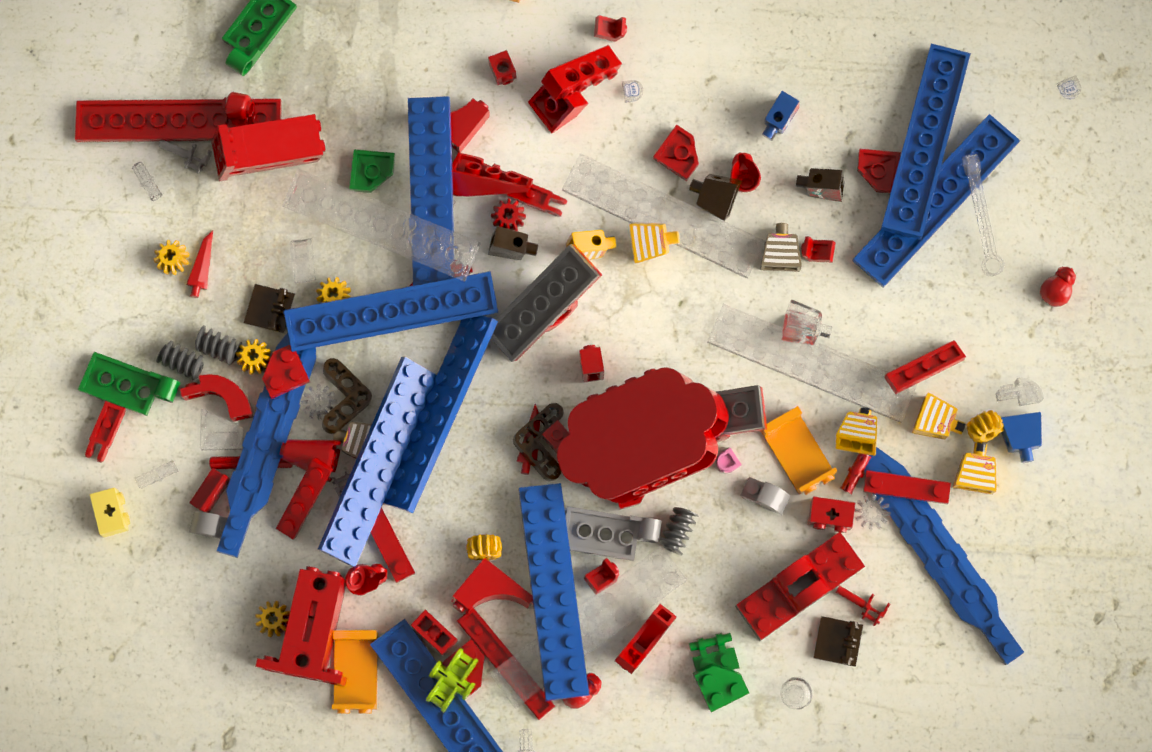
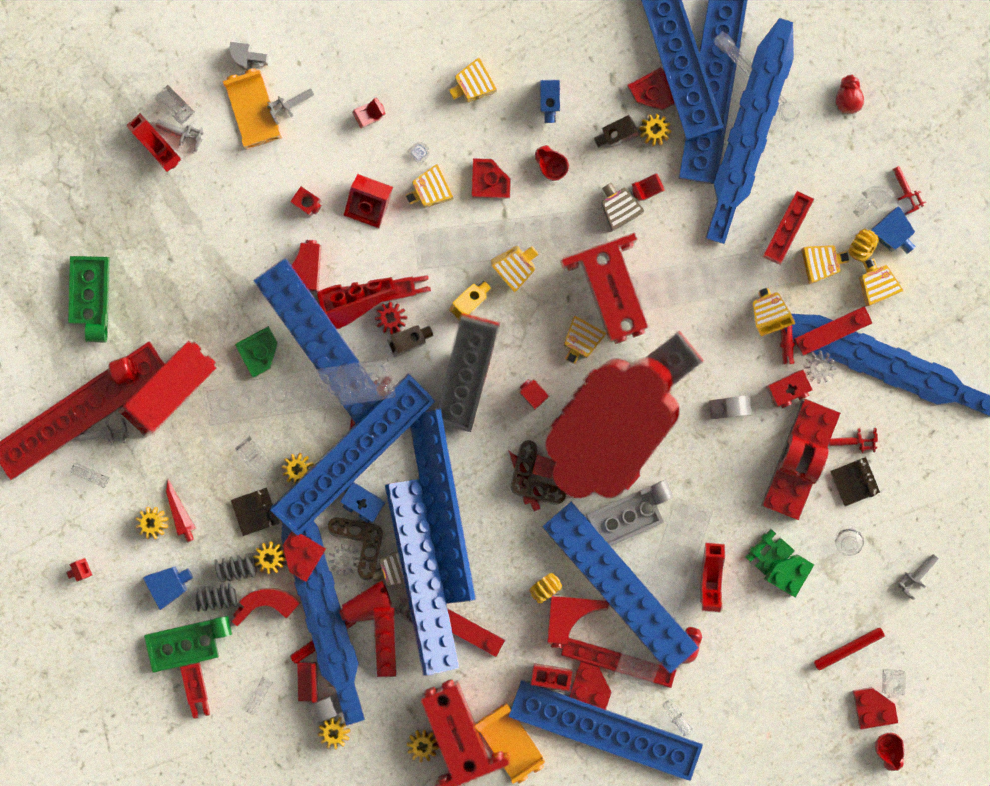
camera: 35 degrees left, 10 degrees up
(78, 257) = (79, 570): none -> red tile
(101, 503) = (233, 746): light yellow brick -> none
(146, 321) = (167, 585): none -> blue torso
(199, 561) = (334, 739): none -> yellow gear
(219, 433) = (284, 633): clear wing -> none
(365, 578) = (471, 669): red hair -> none
(370, 350) = (373, 503): none -> blue brick
(447, 686) = (588, 704): lime axle -> none
(581, 73) = (360, 188): red brick -> none
(602, 576) = (648, 550): red bracket -> none
(620, 126) = (430, 188): none -> yellow torso
(669, 345) = (582, 339): none -> torso
(677, 530) = (682, 478): dark grey piece -> none
(716, 194) = (541, 195): dark brown torso -> none
(720, 60) = (473, 82): none -> yellow torso
(726, 310) = (611, 287): none -> red brick
(727, 461) = (685, 398): bright pink tile -> none
(798, 452) = (734, 356): light orange panel -> none
(803, 324) = (675, 255): clear torso -> none
(854, 197) = (660, 134): none -> yellow gear
(949, 254) = (750, 130): none -> blue plate
(1058, 401) = (907, 191): none -> red piece

